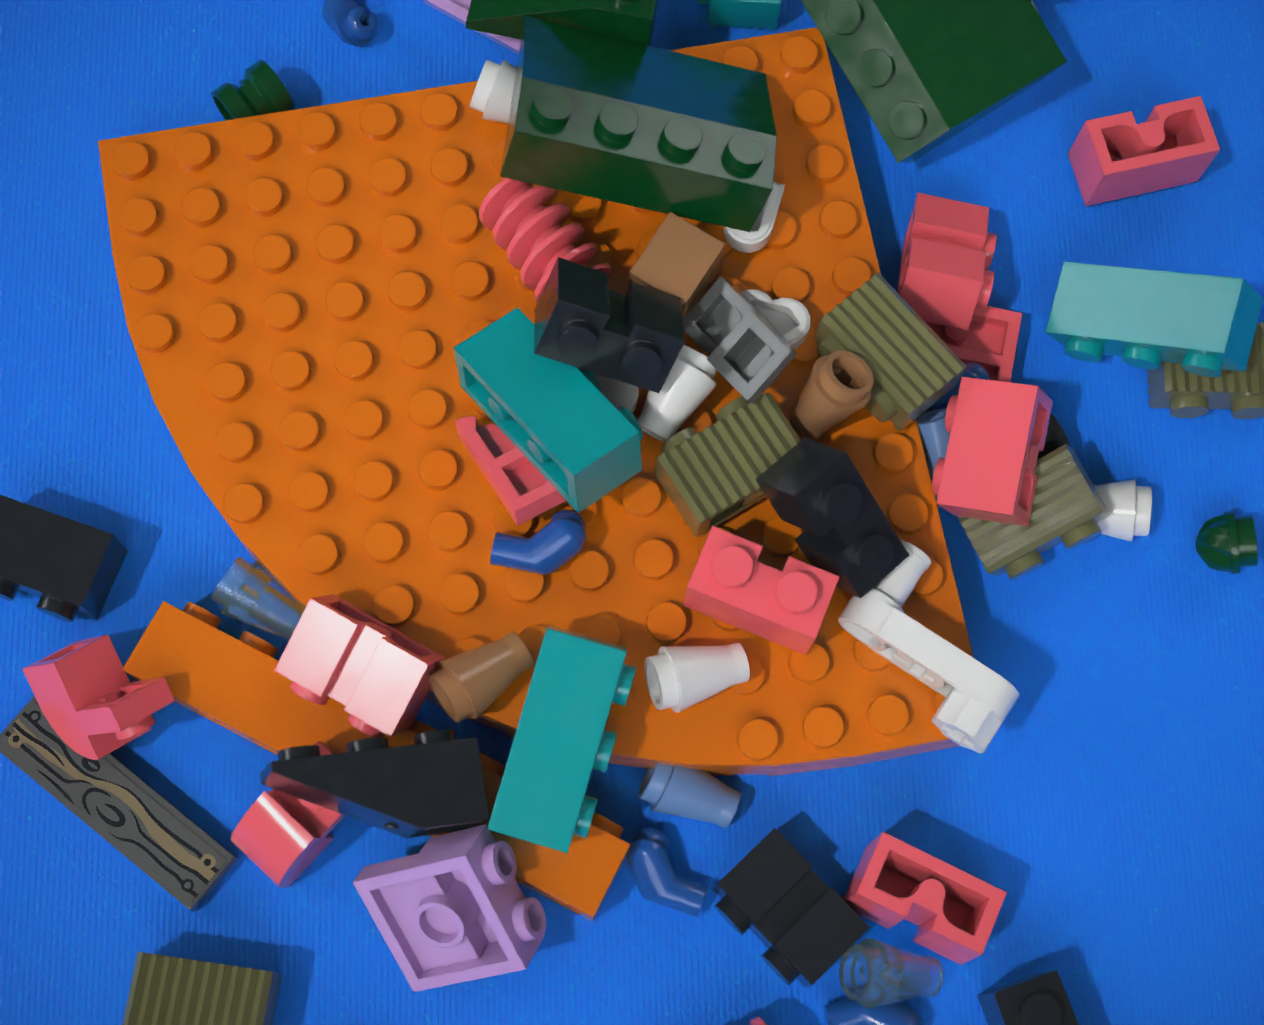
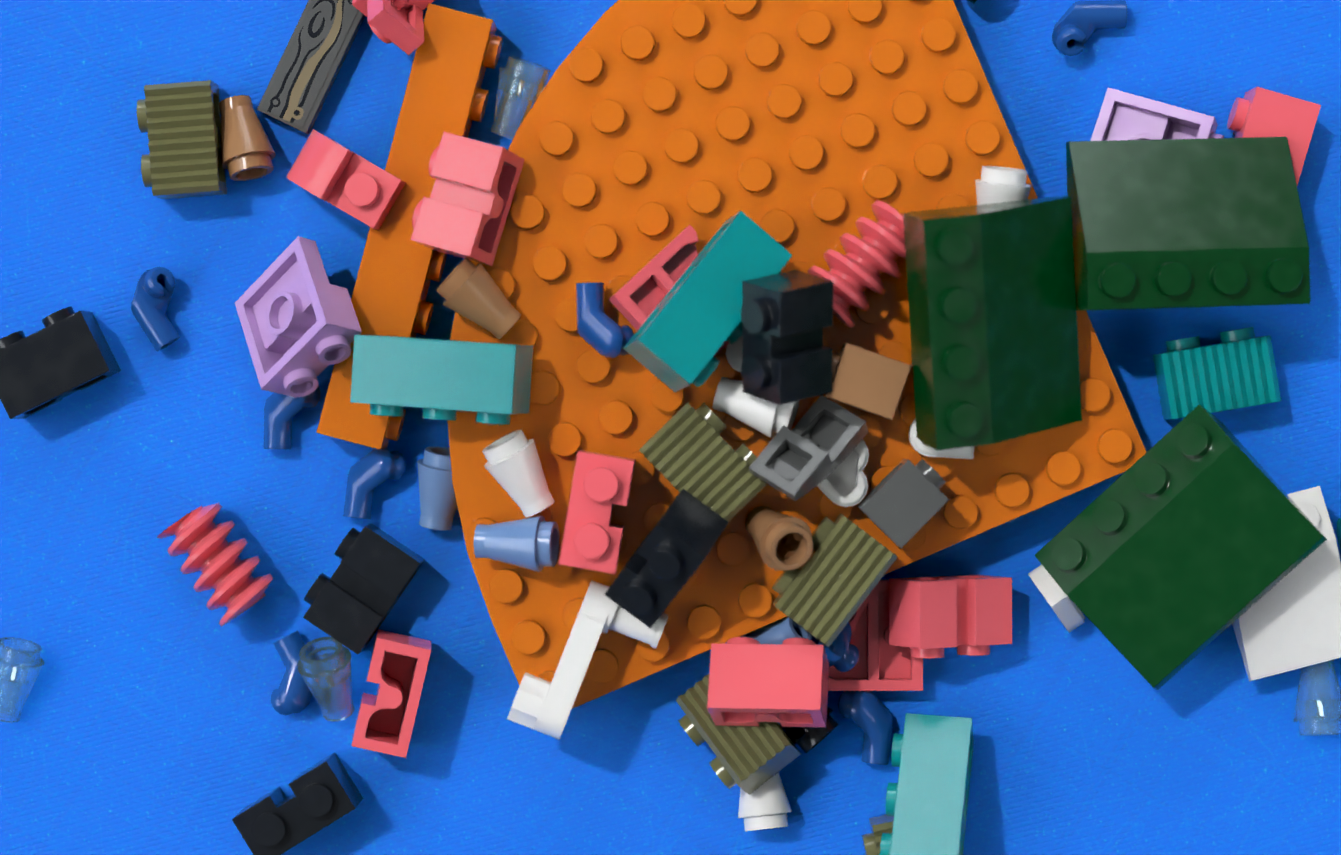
camera: 85 degrees right, 15 degrees up
(222, 934) = (243, 140): none -> medium nougat cone
(398, 789) = (375, 266): black slope -> none
(558, 968) = (278, 417): none -> blue arm
(777, 692) = (521, 542): none -> medium blue cone
(817, 260) = (905, 500): none -> dark grey brick
(944, 160) = (1060, 603): none -> white tile
(1056, 376) = (873, 719): none -> blue arm
(1126, 159) = (1108, 793): coral brick -> none

